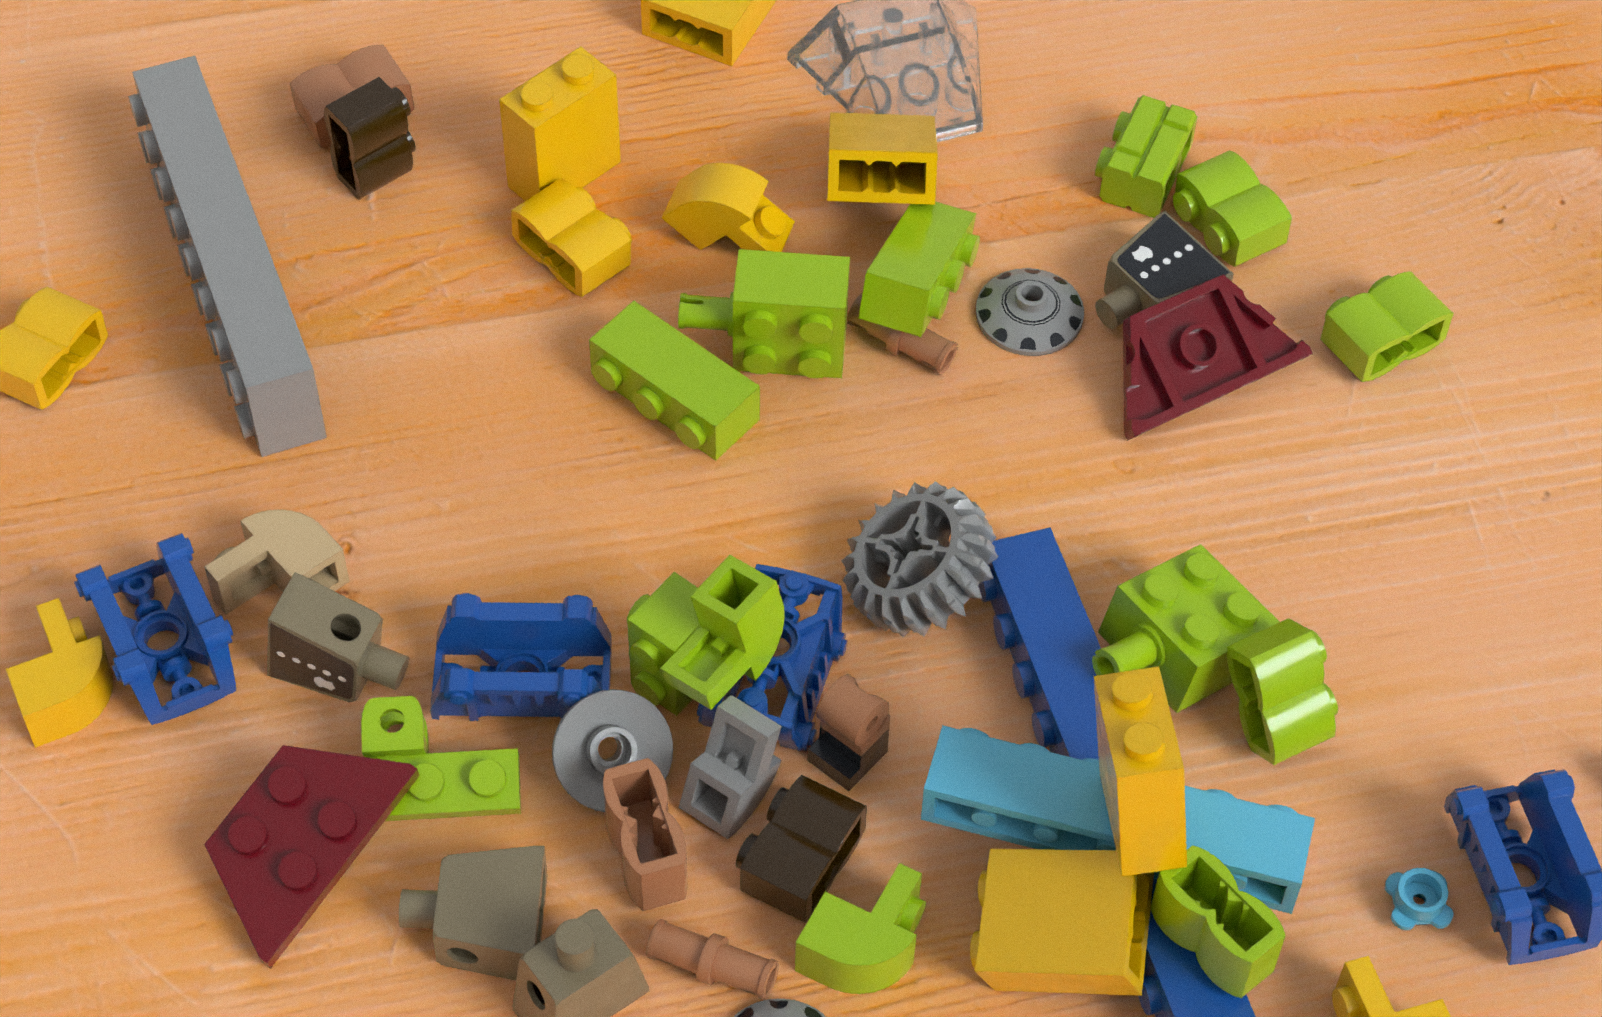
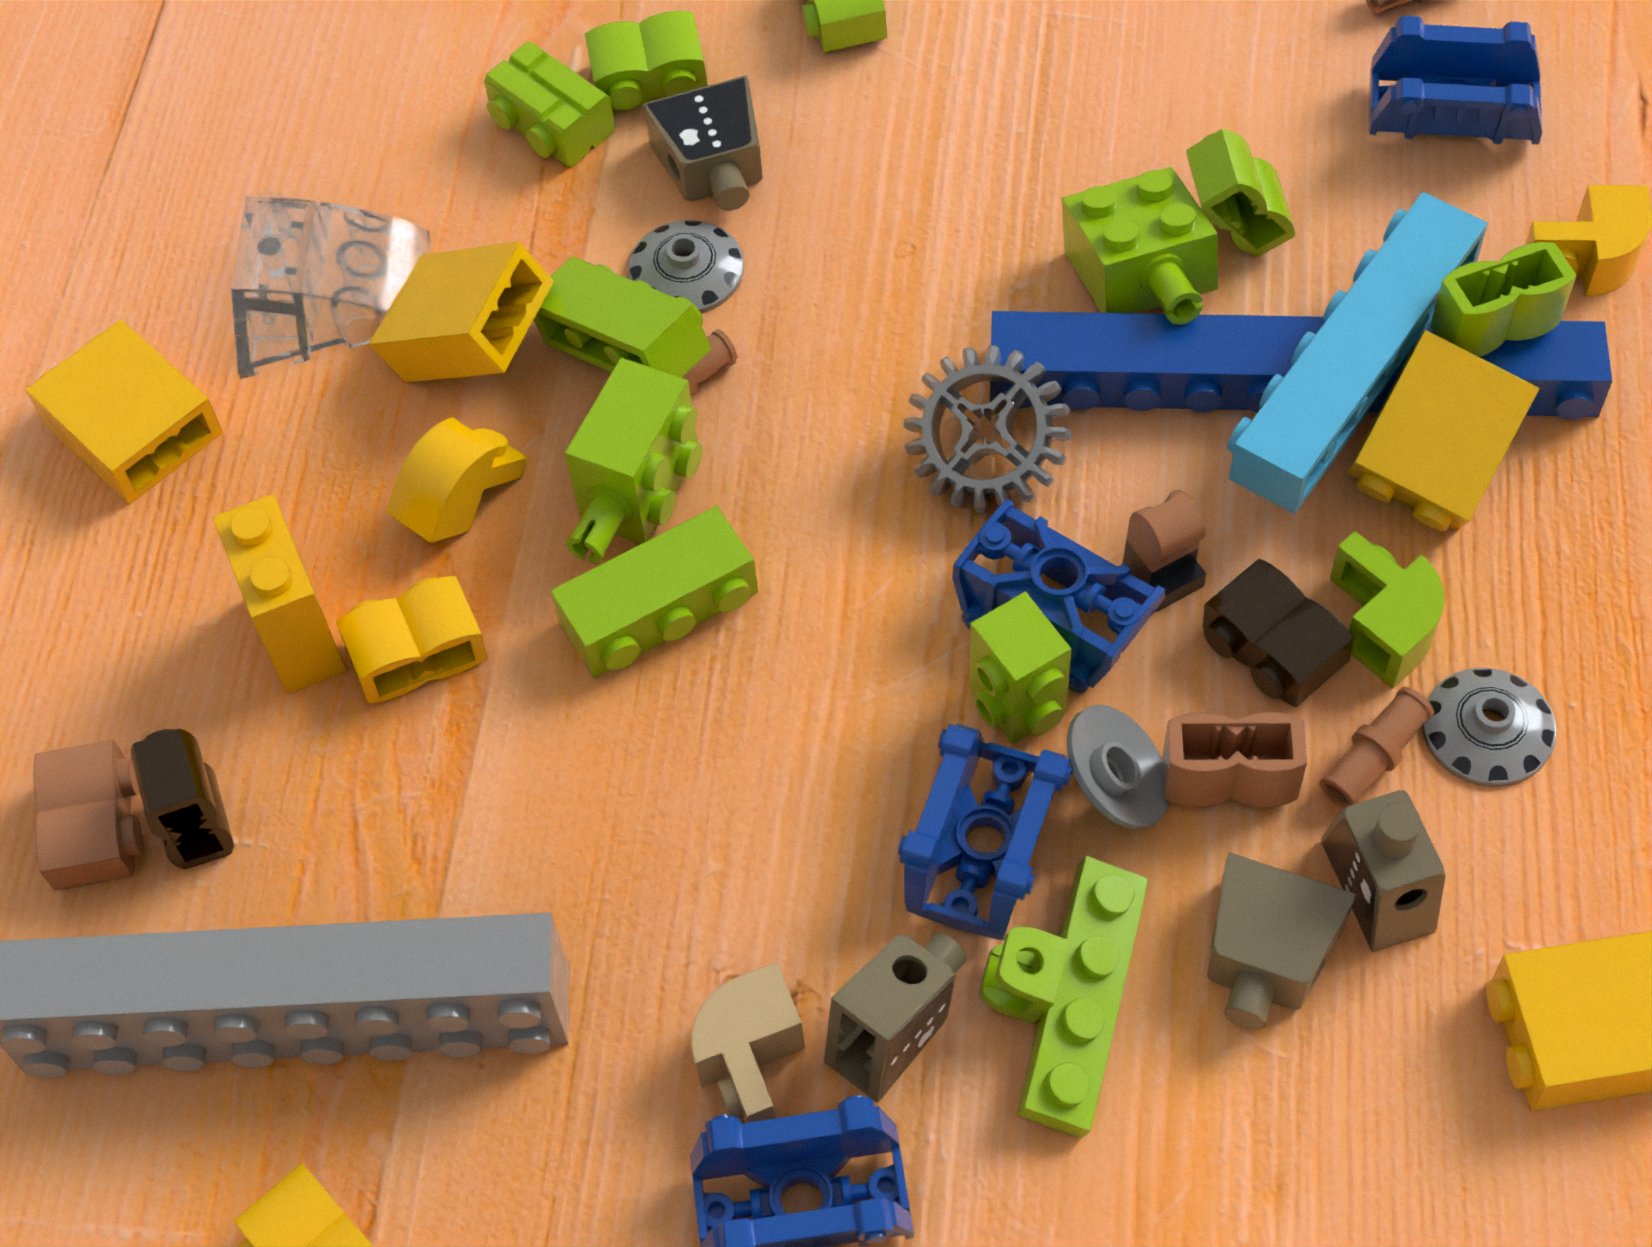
camera: 65 degrees left, 5 degrees up
(299, 836) = (1134, 1099): dark red wing -> none
(734, 769) = (1173, 661): light grey brick -> none
(737, 633) = (1069, 589): lime brick -> none
(1141, 771) = (1395, 269): yellow brick -> none
(1197, 352) = (818, 142): dark red wing -> none
(1423, 884) = (1460, 180): medium azure plate -> none

